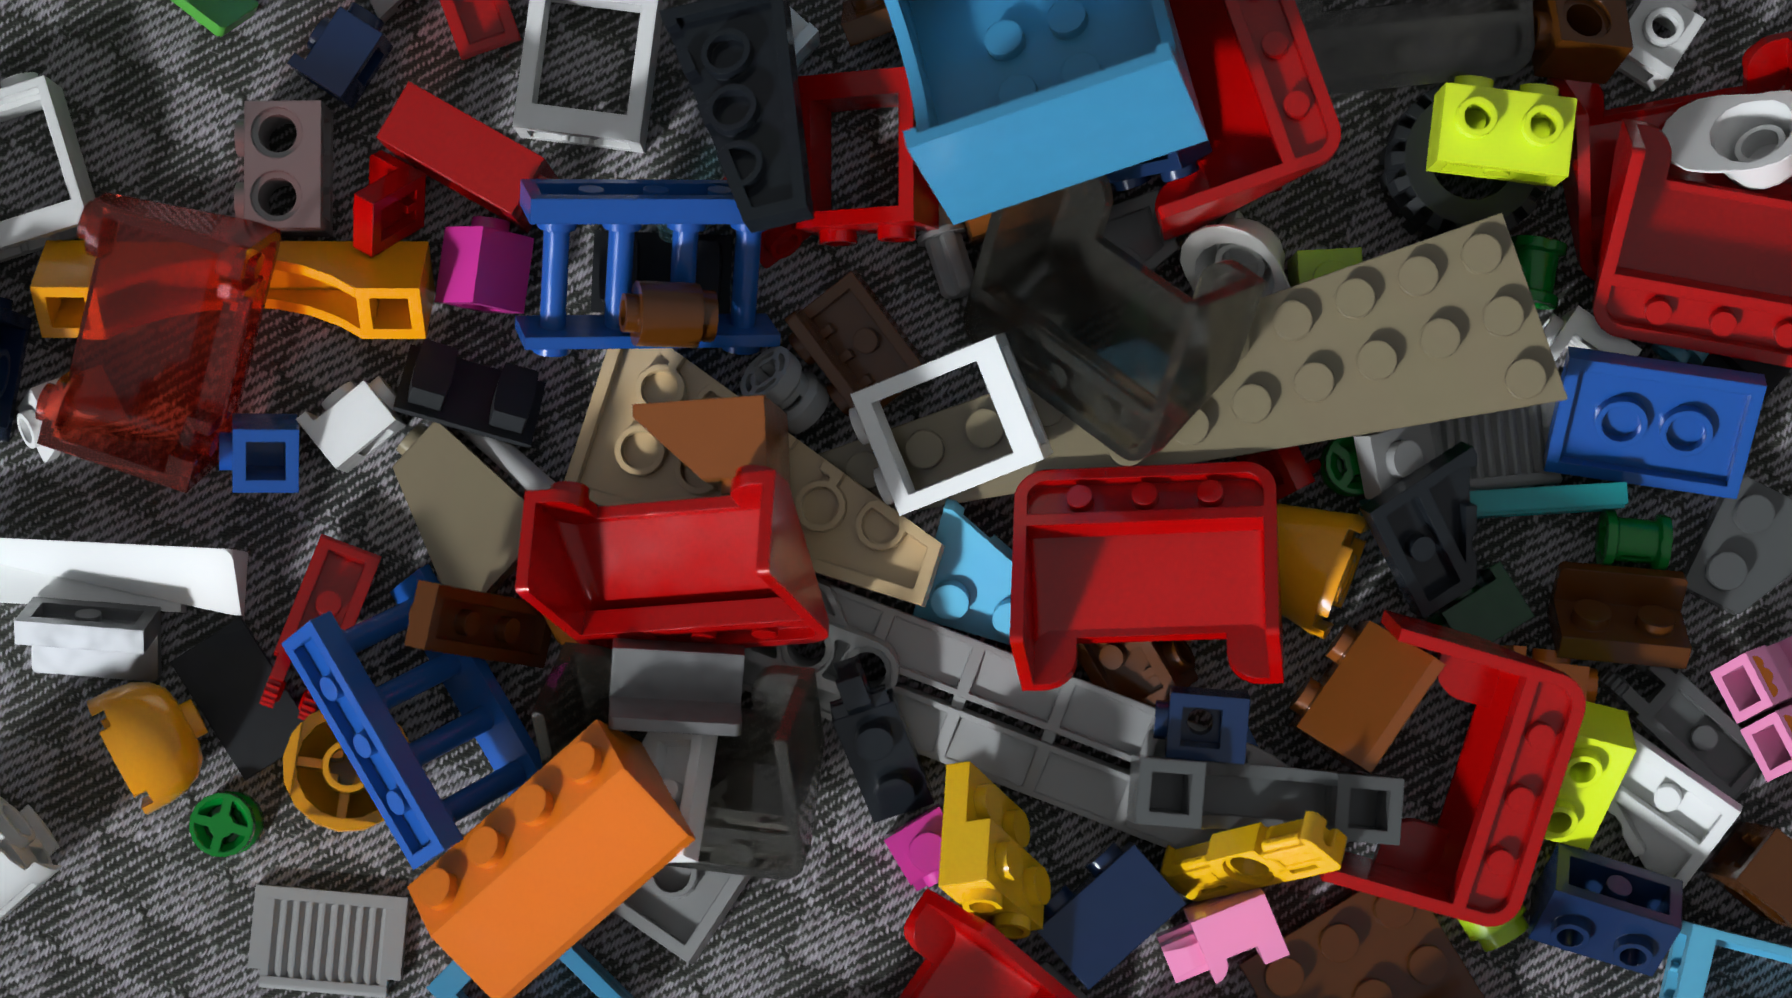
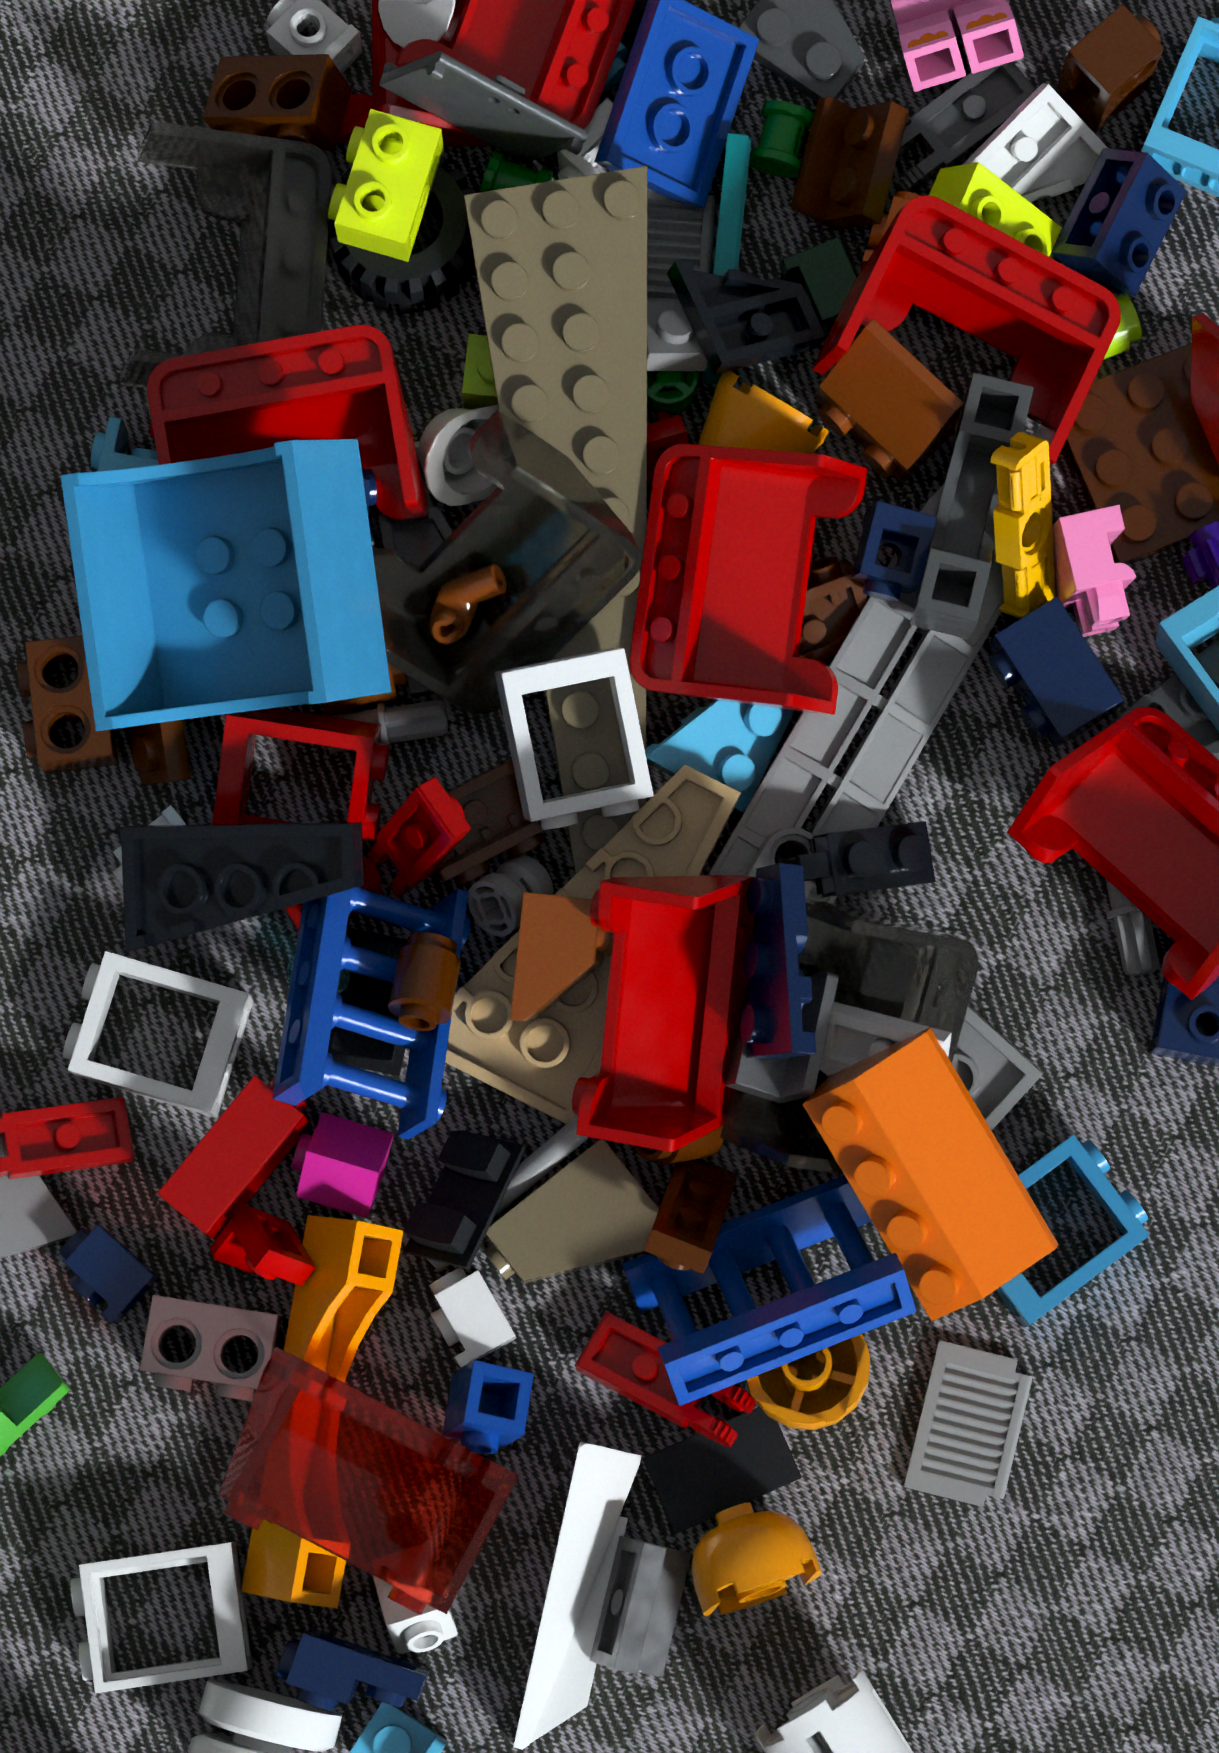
camera: 85 degrees left, 5 degrees down
(213, 822) = (854, 1499): green wheel -> none
(711, 673) = (777, 986): none -> dark blue wing
(824, 286) = (420, 835): none -> red hinge
(918, 847) = (966, 833): dark pink brick -> none
(986, 857) = (984, 769): yellow plate -> none
(1074, 284) = (459, 602): none -> dark orange arm
(1603, 218) = (483, 107): none -> dark grey door

